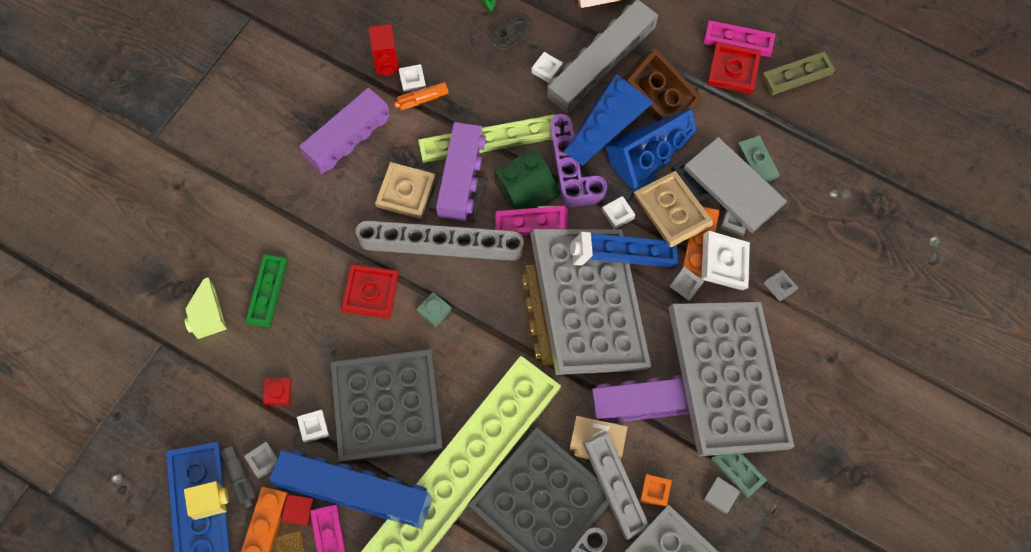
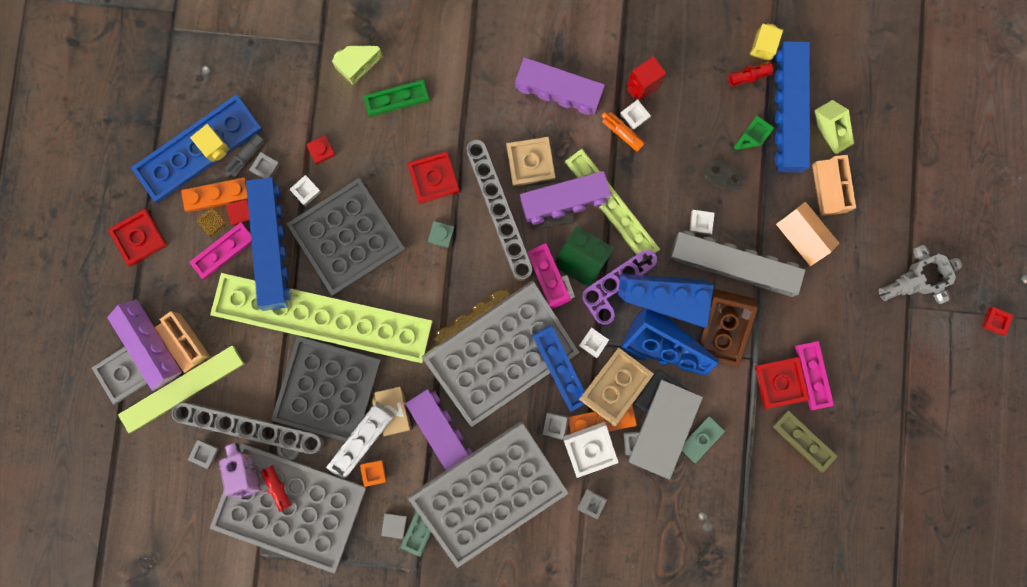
camera: 65 degrees right, 15 degrees up
(581, 248) = (535, 328): white plate -> none

